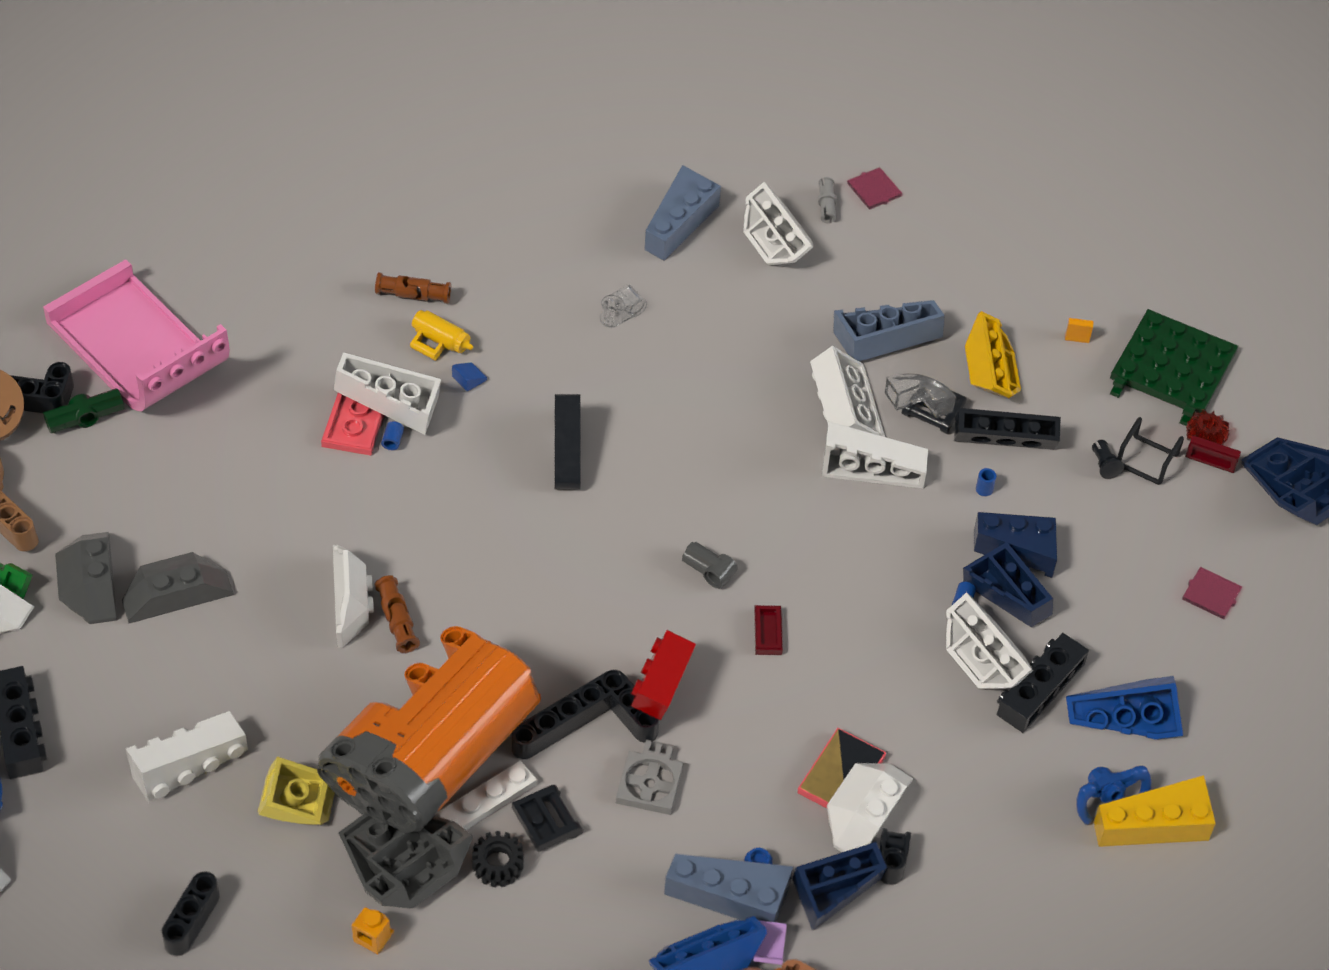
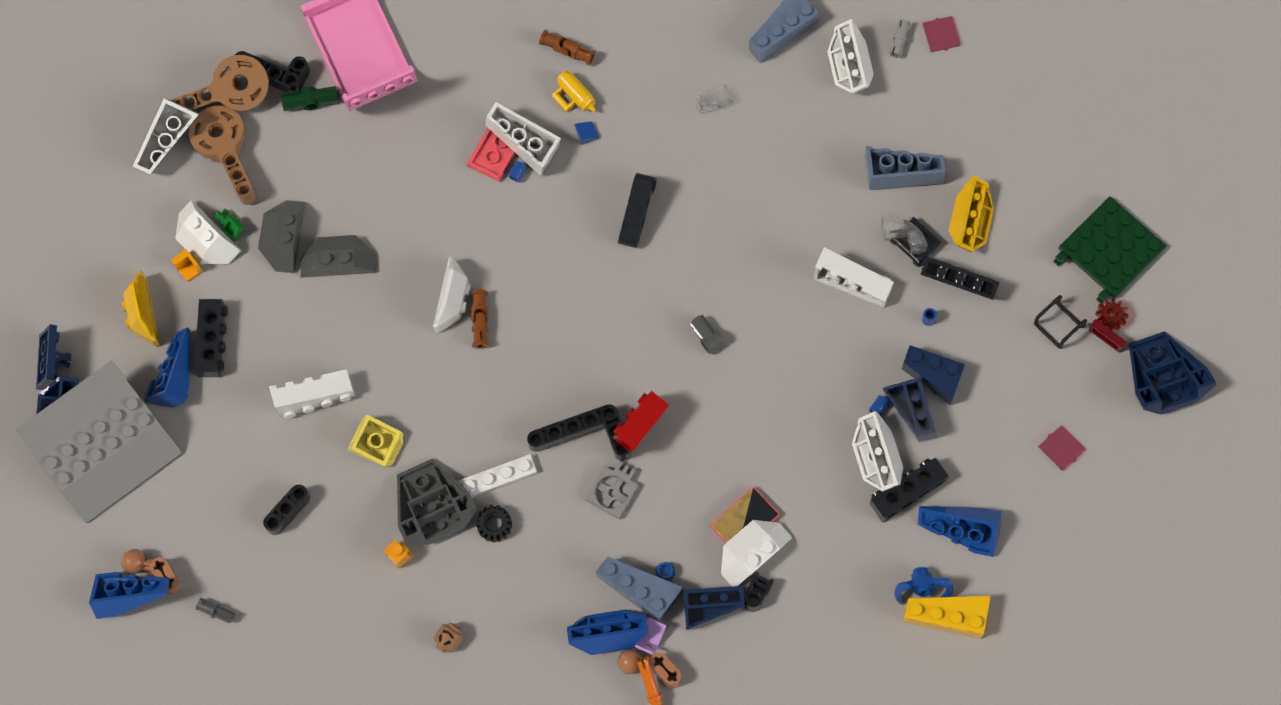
camera: 25 degrees right, 20 degrees up
(416, 757) = (476, 432): orange piece -> none
(540, 823) = (528, 501): black plate -> none
(768, 630) = (732, 396): dark red tile -> none
(845, 391) = (853, 220): white slope -> none
(1079, 330) = (1048, 203): light orange tile -> none
(1109, 464) = (1026, 323): black pin -> none

